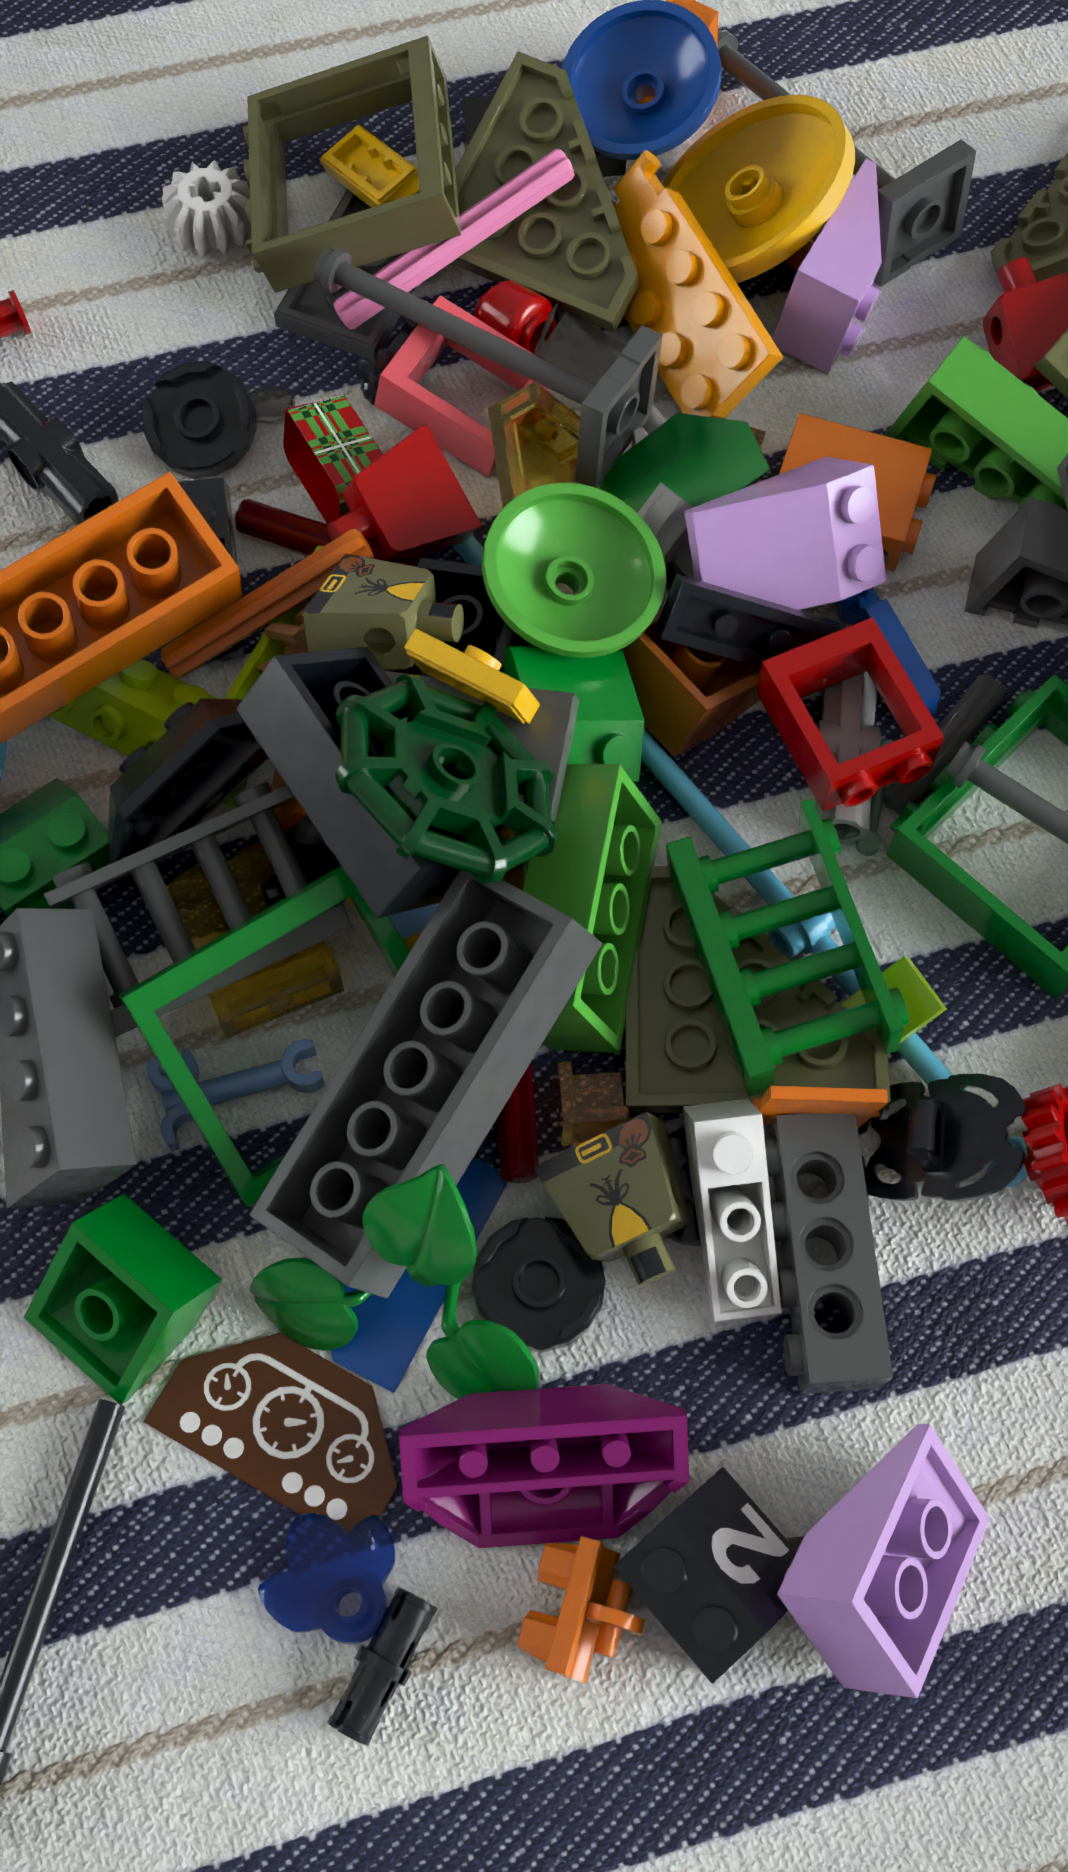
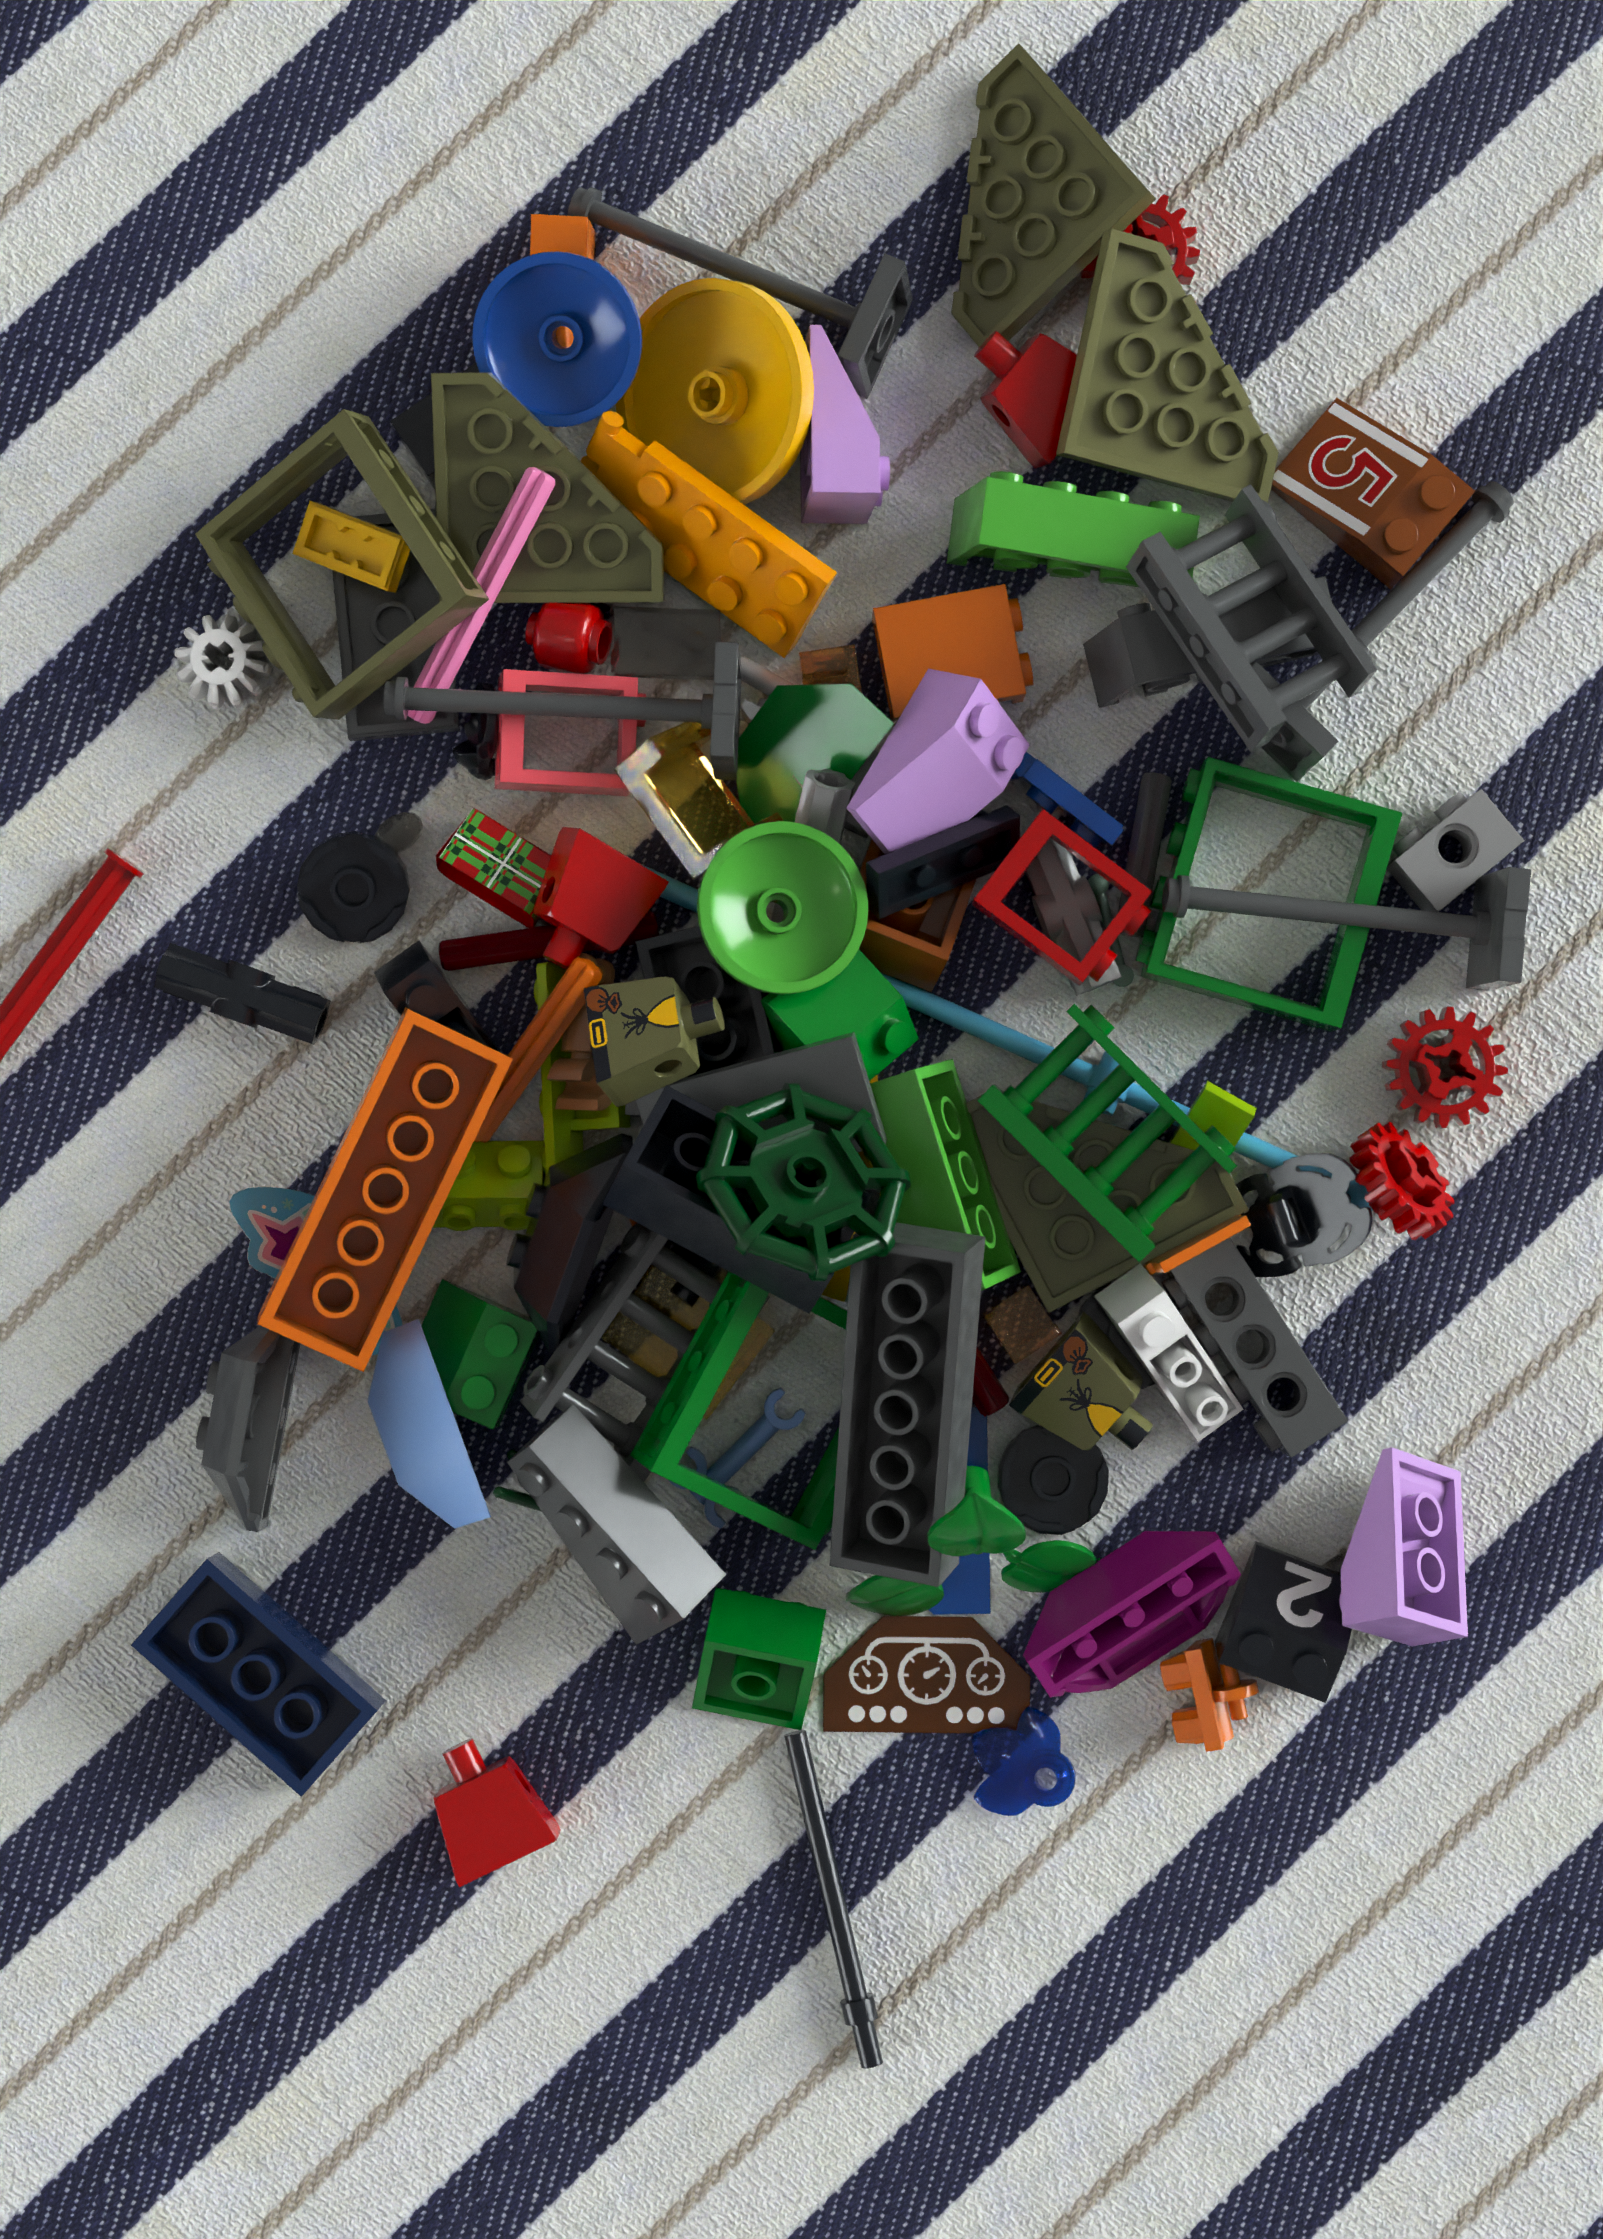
camera: 25 degrees left, 20 degrees up
(382, 1666) = (1091, 1803): black pin -> none
(472, 674) = (765, 1068): yellow plate -> none

